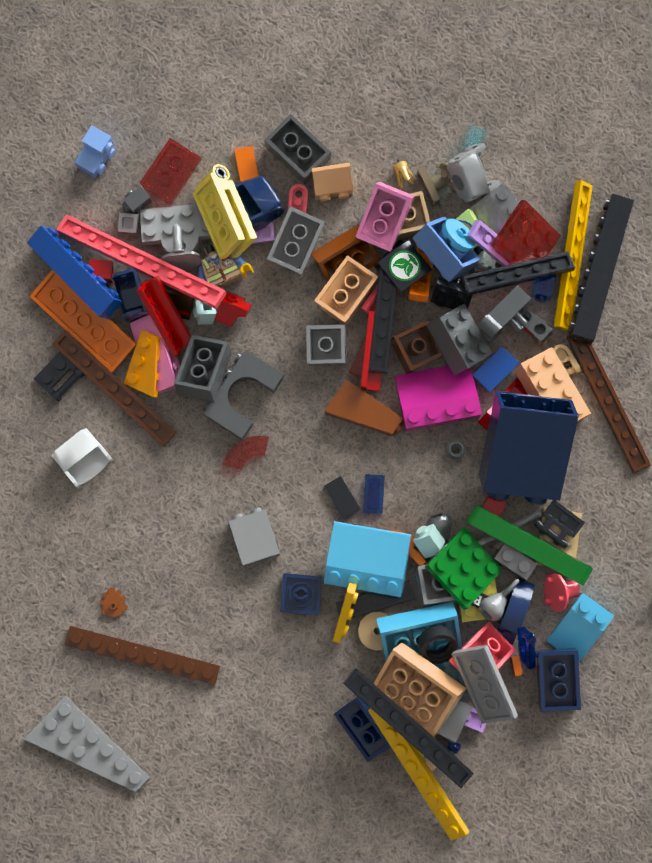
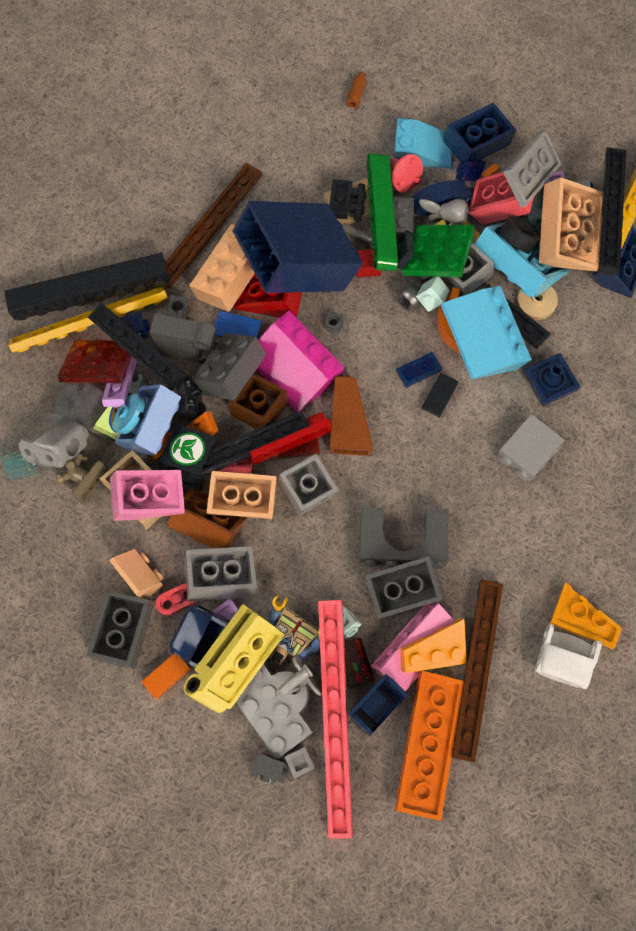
camera: 120 degrees left, 10 degrees down
(54, 372) = (501, 743): black plate -> none
(75, 272) = (387, 784): blue brick -> none
(96, 151) = (243, 848): light blue brick -> none
(101, 490) = (583, 619): none -> light orange wing
(103, 268) = (368, 760): red brick -> none
(164, 315) = (375, 657): red fence -> none
(170, 171) = (216, 752): clear red plate -> none
(232, 308) = (324, 589): red brick -> none
(245, 450) = (458, 508): clear red tile -> none
(346, 613) = (545, 326): yellow plate -> none
(402, 169) = (84, 517): pearl gold piece -> none
(481, 540) = (404, 249): none -> black tile
(565, 355) = (189, 274): tan plate -> none

